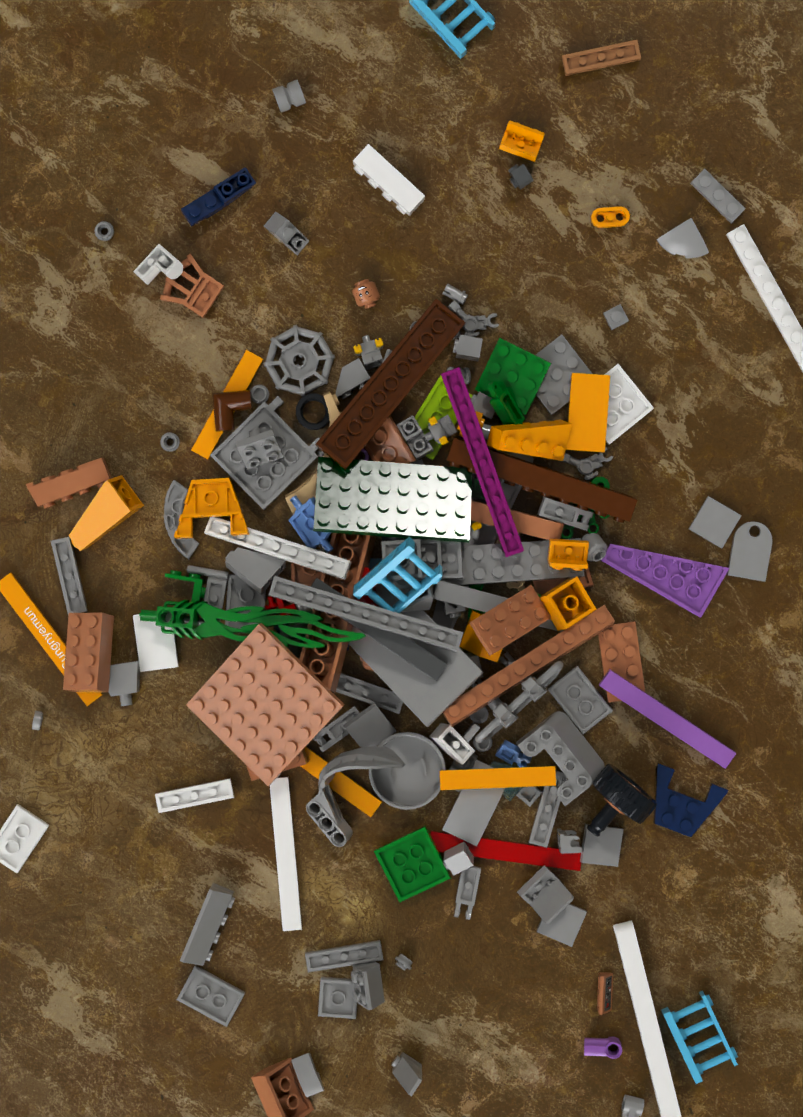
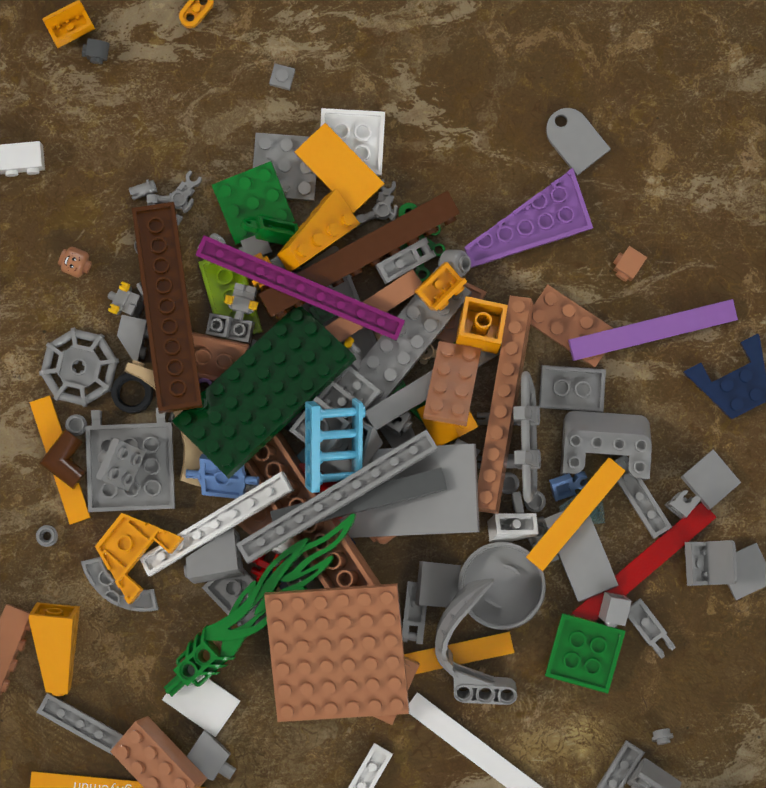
camera: 45 degrees left, 5 degrees down
(198, 590) = (192, 624): green bracket -> none
(215, 587) = (202, 608): light grey plate -> none
(369, 693) = (409, 558): light grey plate -> none
(468, 347) = (196, 217): light grey brick -> none
(529, 794) = (613, 502): light grey tile -> none
(622, 797) = (685, 424): black wheel -> none
(697, 663) = (628, 264): none -> nougat brick
(714, 522) = (524, 146): light grey tile -> none

